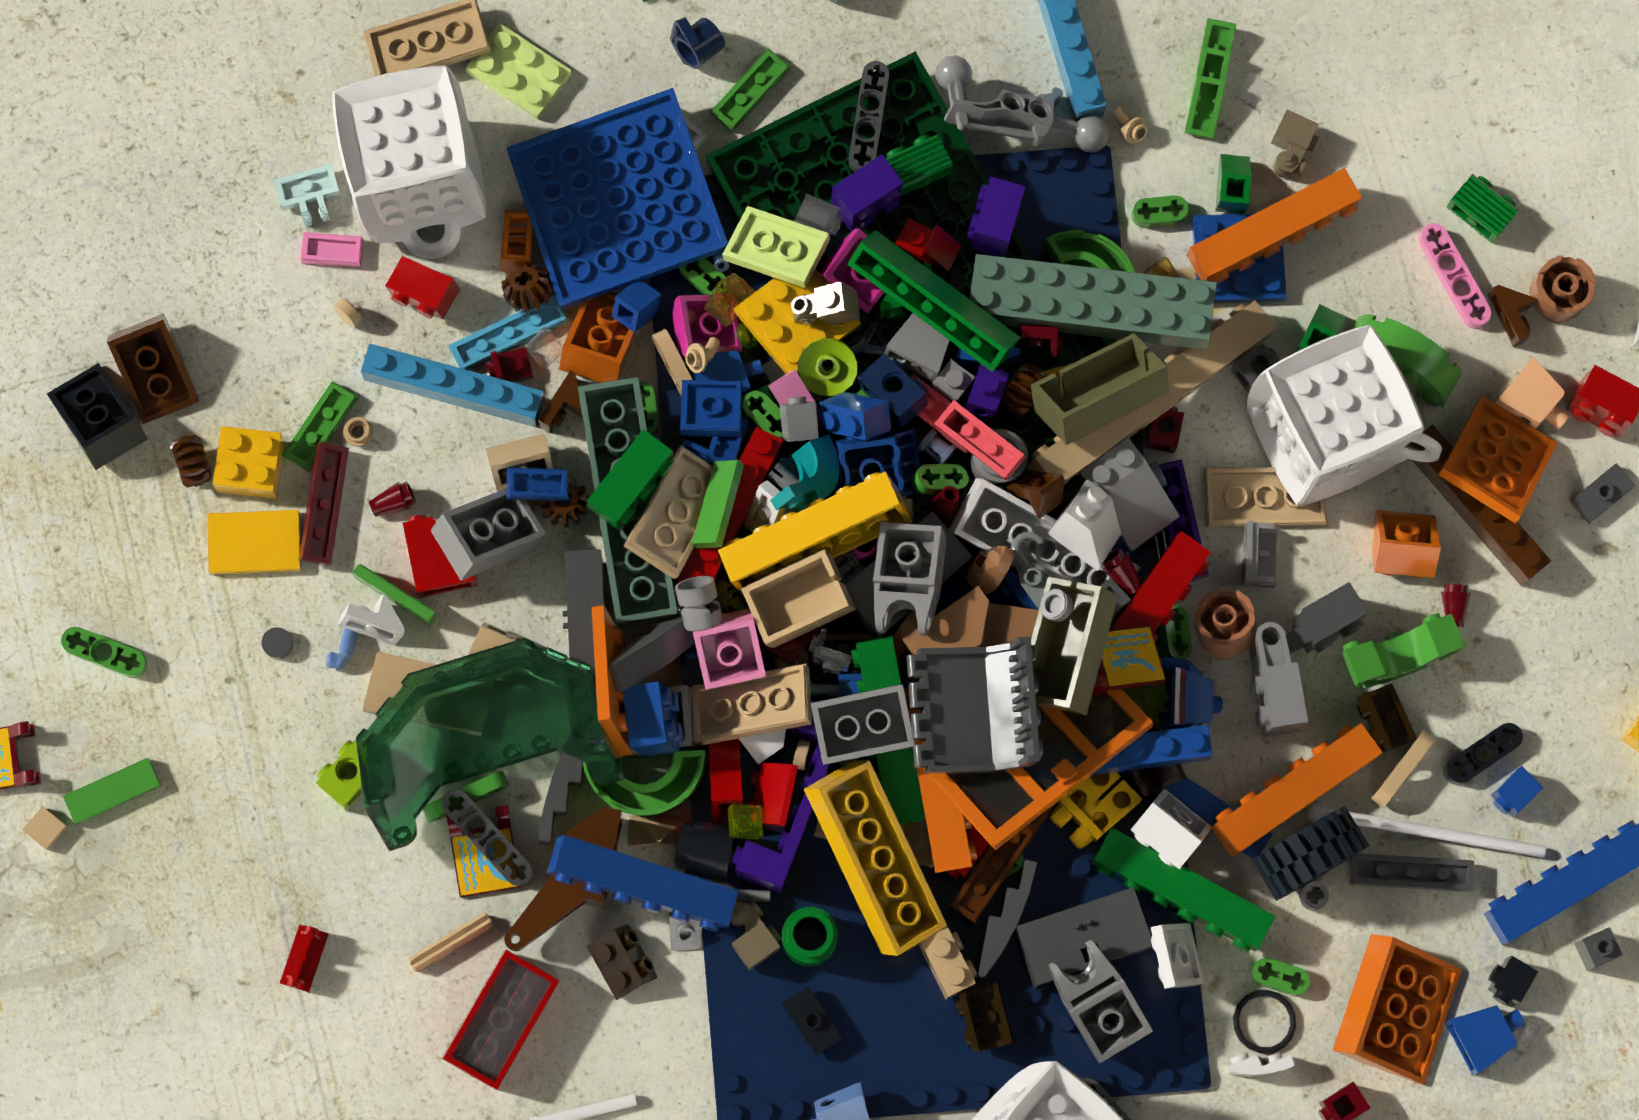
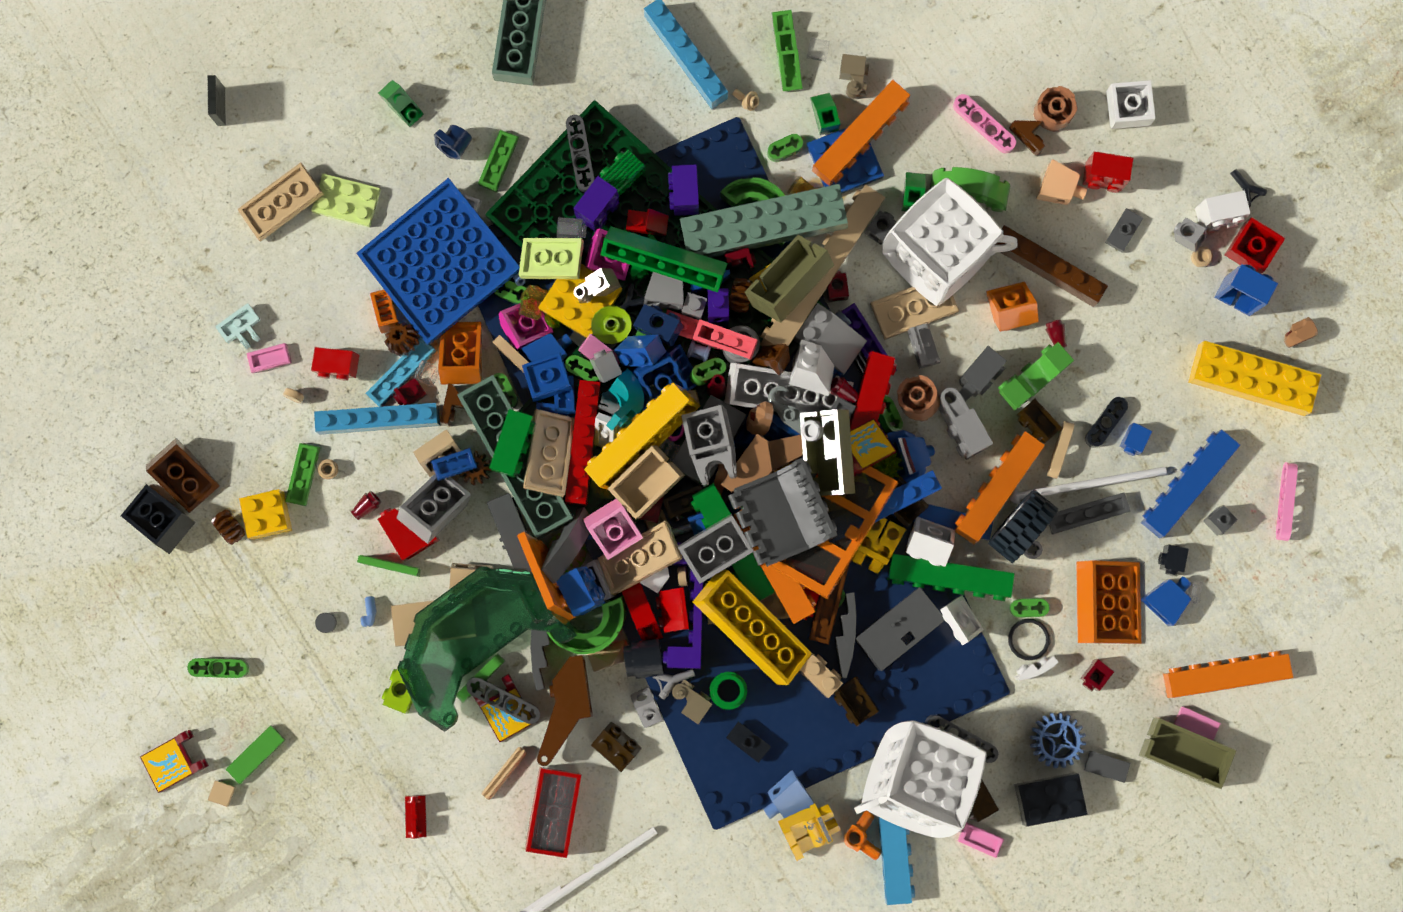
camera: 15 degrees left, 5 degrees up
(254, 542) = (287, 563): yellow tile -> none
(323, 504) = (323, 523): dark red plate -> none
(380, 624) = (387, 588): white slope -> none
(410, 157) = (296, 283): white piece -> none
(636, 305) = (475, 326): blue brick -> none
(642, 882) = (611, 696): blue brick -> none
(698, 356) = (526, 347): tan plate -> none
(698, 600) = (584, 507): light grey wheel -> none
(717, 504) = (573, 439): bright green tile -> none
(745, 821) = (662, 634): clear neon green plate -> none
(832, 660) = (680, 512): clear bracket -> none
(1013, 112) = (670, 117): light grey piece -> none
(1092, 997) = (926, 669): light grey brick -> none
(1483, 207) = (987, 73): green brick -> none
(1498, 459) = (1053, 232): orange plate -> none

